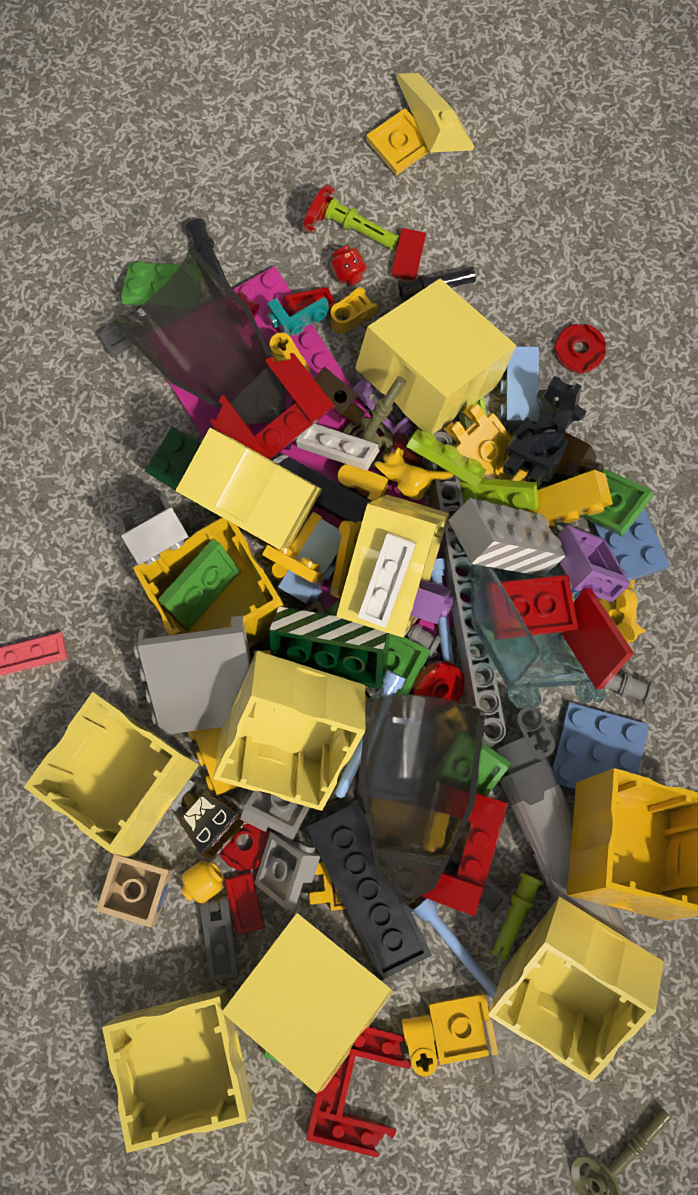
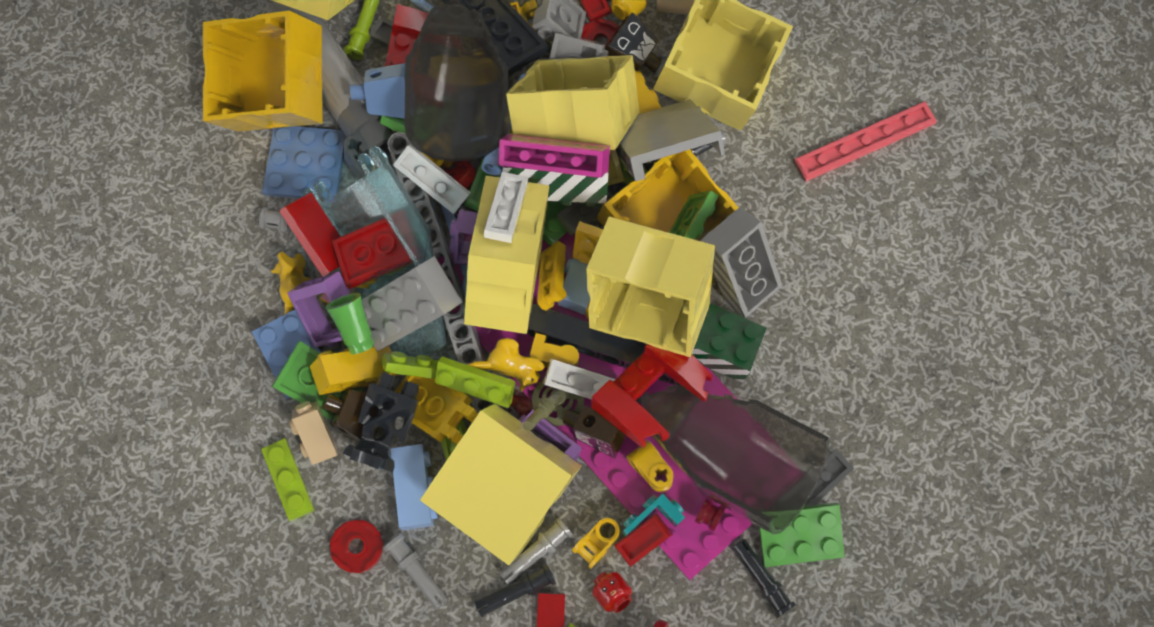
camera: 170 degrees right, 5 degrees down
(324, 655) = (554, 155): none -> dark pink brick
(462, 675) = (431, 178): none -> white plate
(503, 791) = (382, 90): none -> medium blue torso
(532, 323) = (408, 562): none -> light grey pin
(567, 532) = (351, 322): none -> bright green plant
(613, 449) = (313, 431): none -> tan brick
(642, 419) = (287, 479): none -> lime plate

